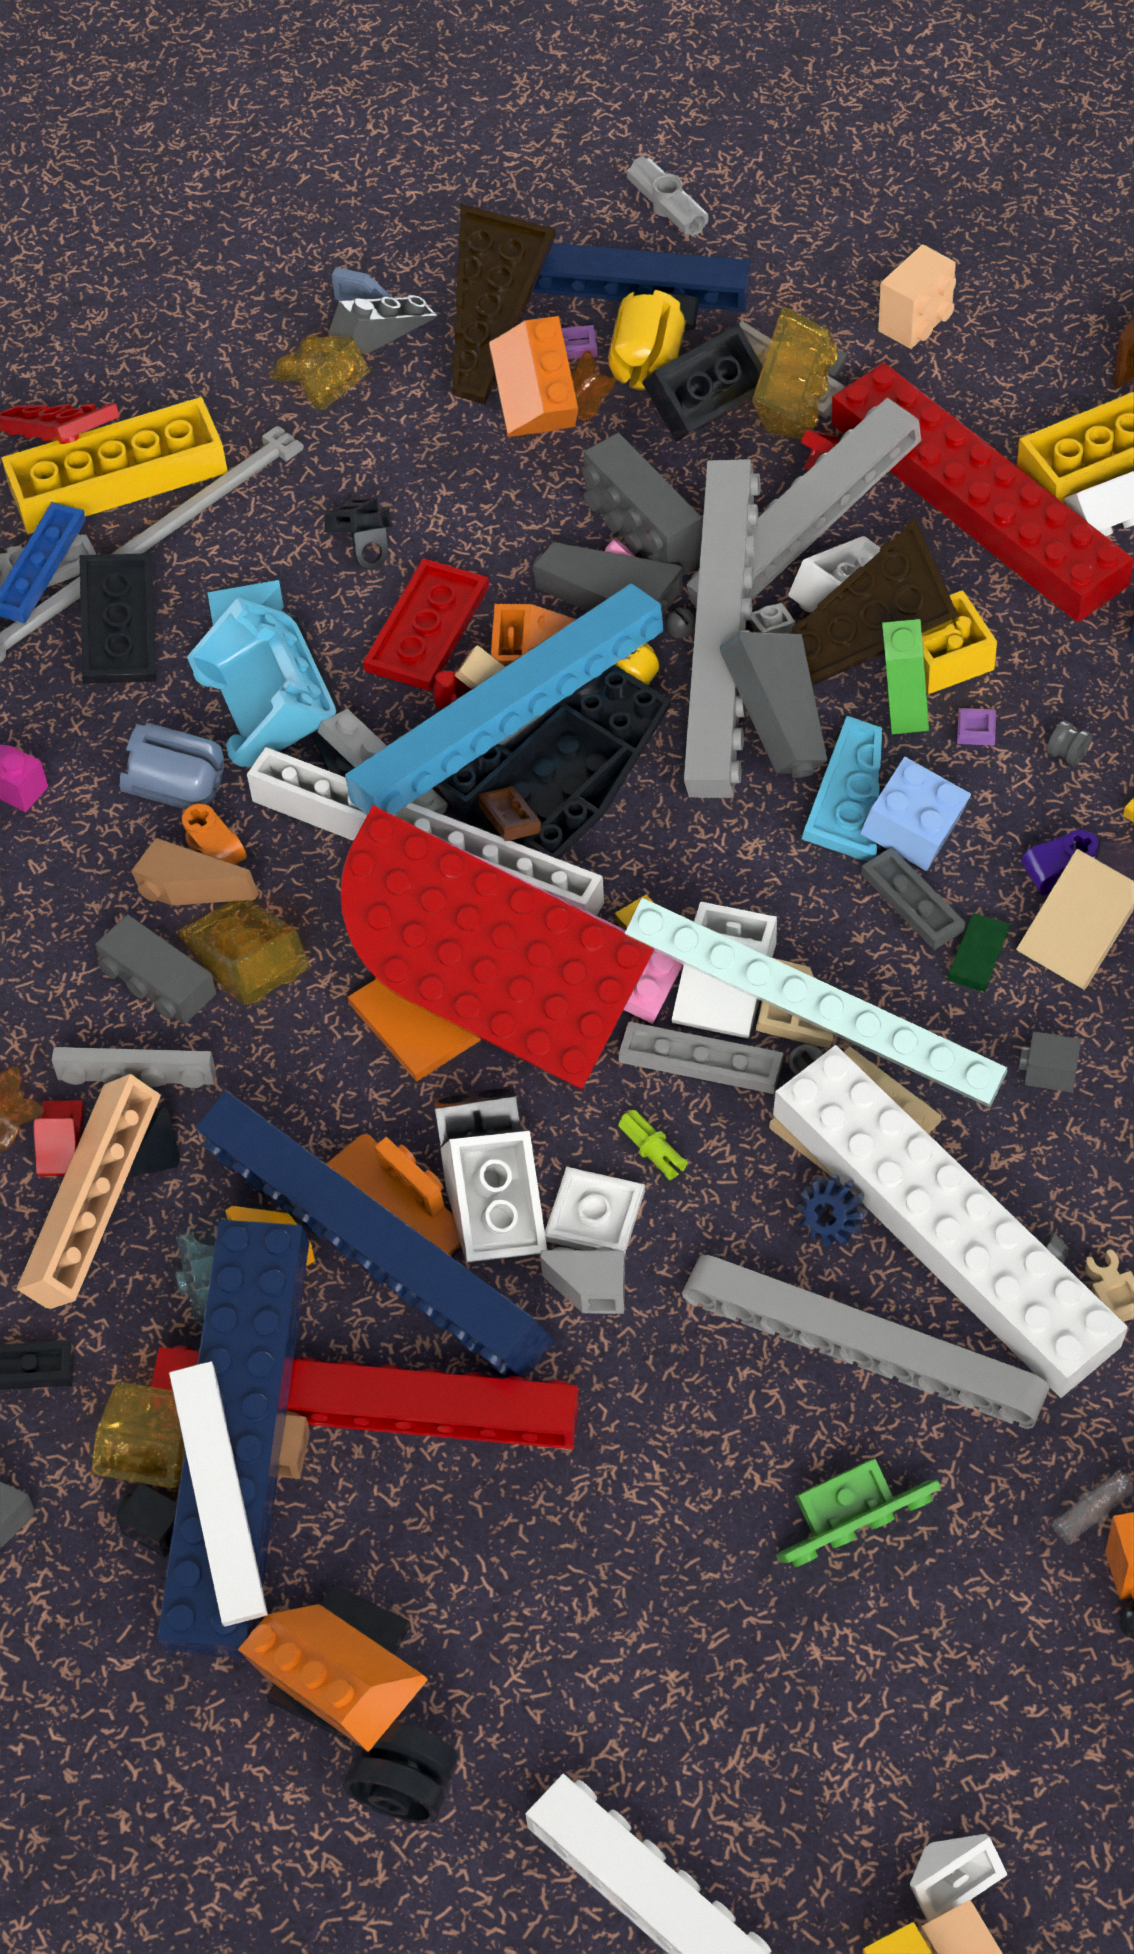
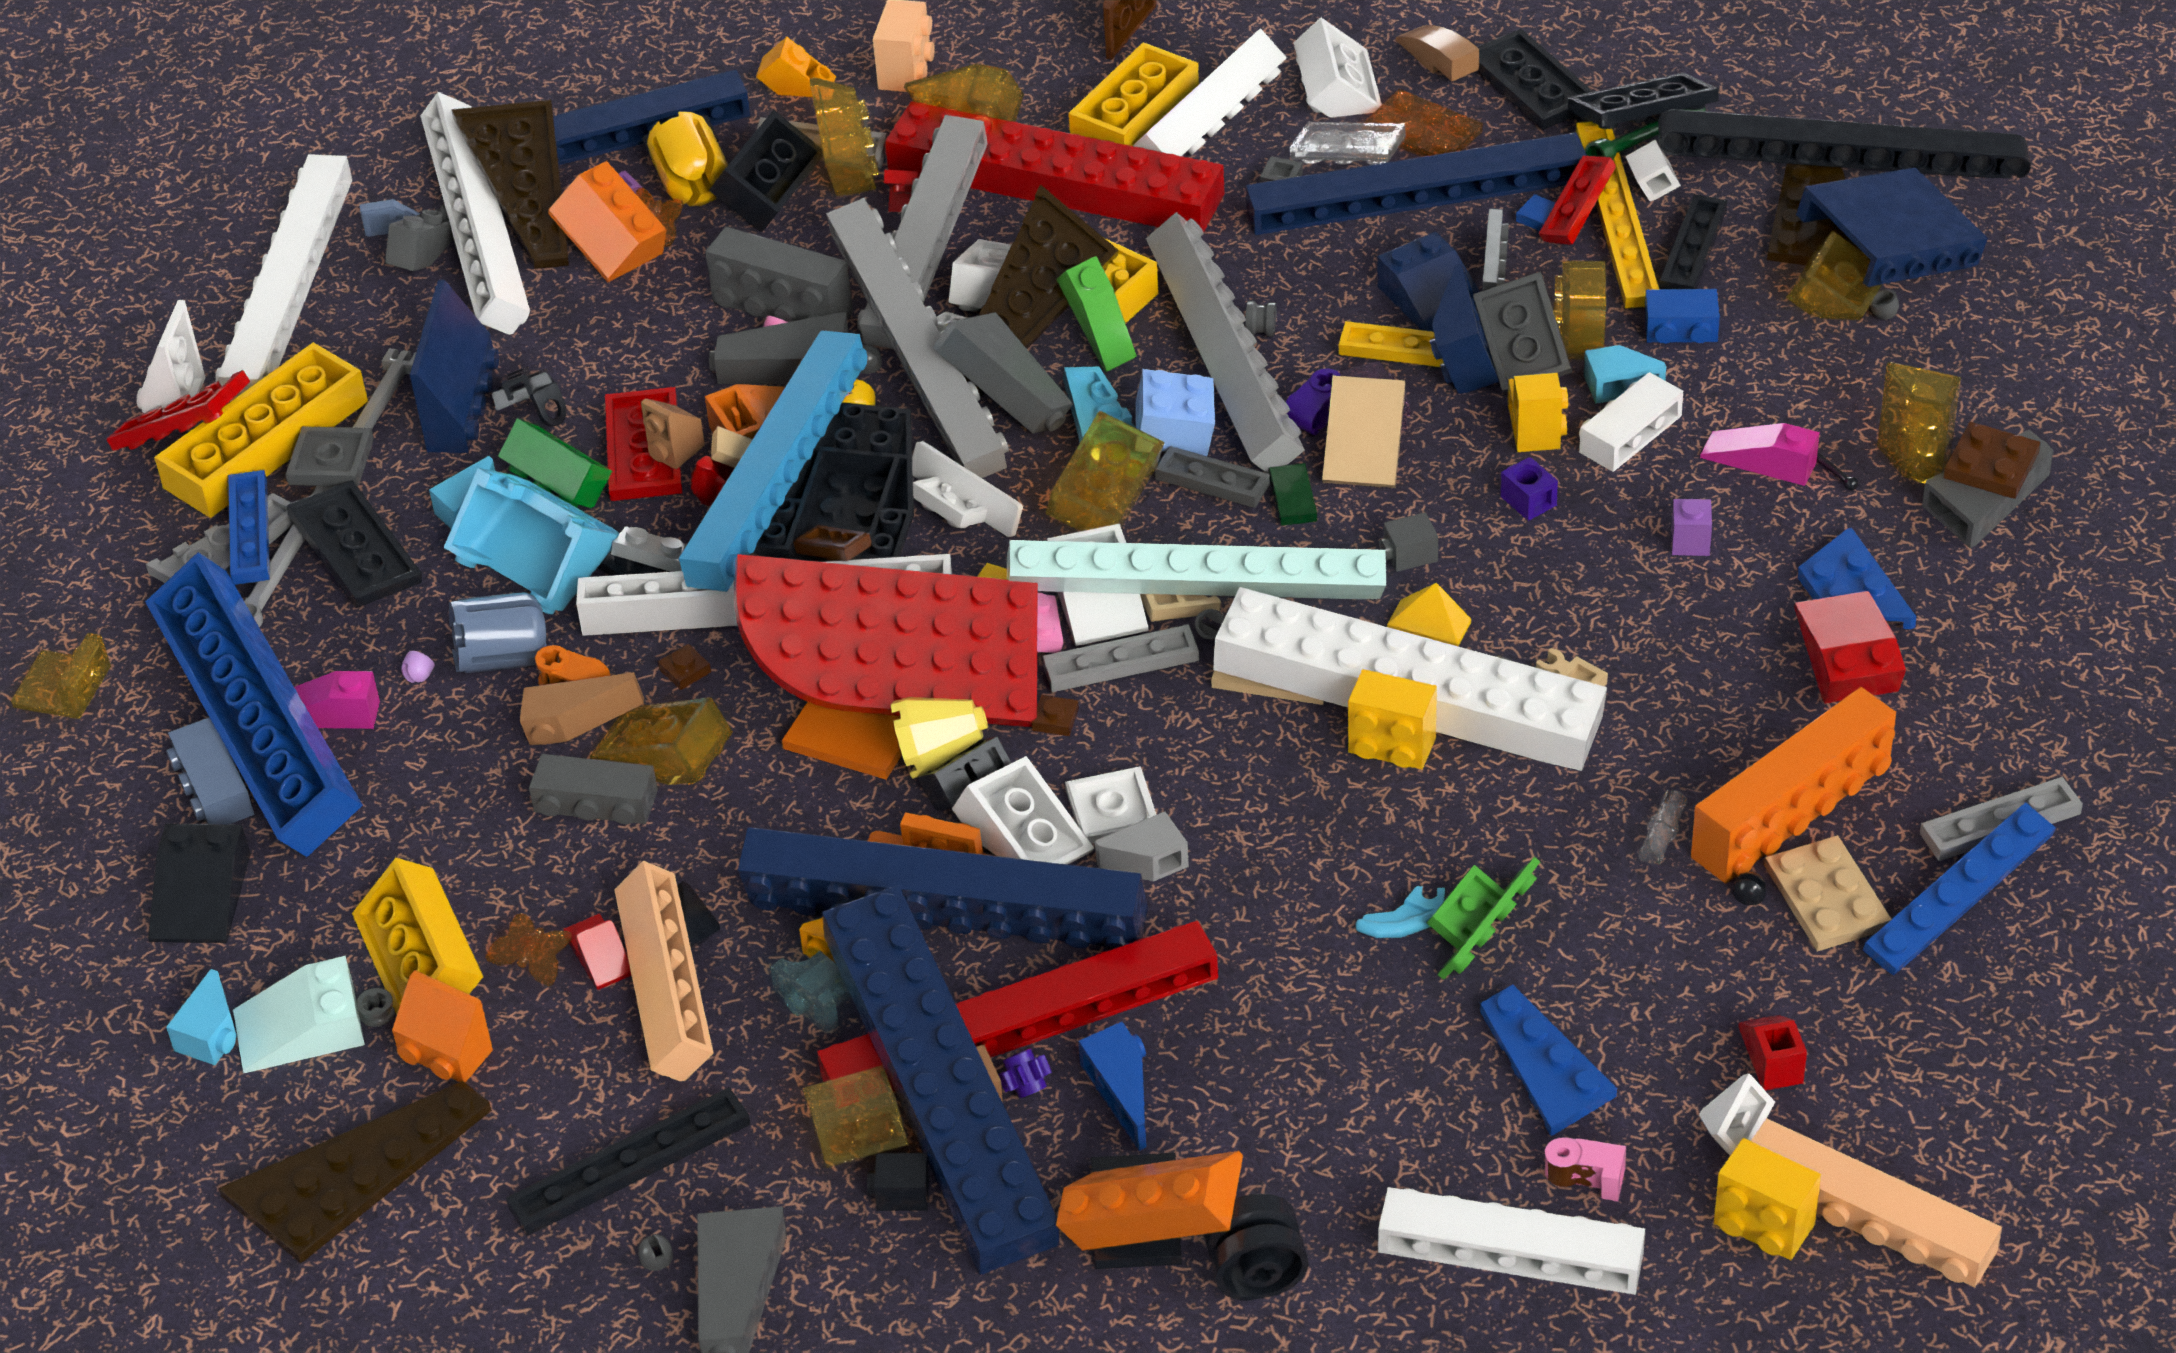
camera: 30 degrees left, 10 degrees down
(76, 368) = (175, 366): none -> white slope
(93, 769) = (416, 667): none -> lavender hinge
(149, 1066) = (604, 875): light grey plate -> none
(150, 519) = (329, 456): none -> dark grey plate
(218, 1494) = (965, 1112): white tile -> none
(238, 311) = (287, 270): none -> white brick
(296, 478) = (452, 373): none -> dark blue slope
(316, 876) = (684, 666): none -> reddish brown plate
(324, 368) = (404, 282): clear yellow bracket -> none
(328, 1464) = (1024, 1073): none -> dark purple gear
(332, 613) = (554, 464): none -> green brick
(411, 1514) = (1116, 1070): none -> blue slope
(422, 332) = (475, 222): none -> white brick
(442, 628) = (671, 432): none -> medium nougat slope
(467, 1059) = (936, 730): none -> light yellow cone
(605, 1089) = (1055, 715): none -> reddish brown plate
(652, 1144) = (1125, 735): lime axle -> none
(664, 809) = (960, 493): none -> white bracket
(667, 196) = (621, 51): light grey piece -> none
(765, 1837) = (1586, 1164): none -> bright pink leg
(783, 1478) = (1405, 920): none -> medium azure piece
(800, 857) = (1104, 475): none -> clear yellow brick
(807, 284) = (789, 68): none -> light orange slope
(813, 1717) = (1552, 1069): none -> blue wing
(816, 1208) = (1322, 706): dark blue gear -> none
(867, 1339) = (1400, 793): light grey beam -> none
(898, 1257) = (1392, 719): none -> yellow brick
(945, 380) = (972, 90): none -> clear yellow slope
(976, 726) = (1173, 338): medium lavender tile -> none
(1012, 759) = (1225, 344): none -> light grey brick
(1022, 1155) = (1431, 615): none -> yellow slope
(1036, 1818) = (1775, 1050): none -> red slope

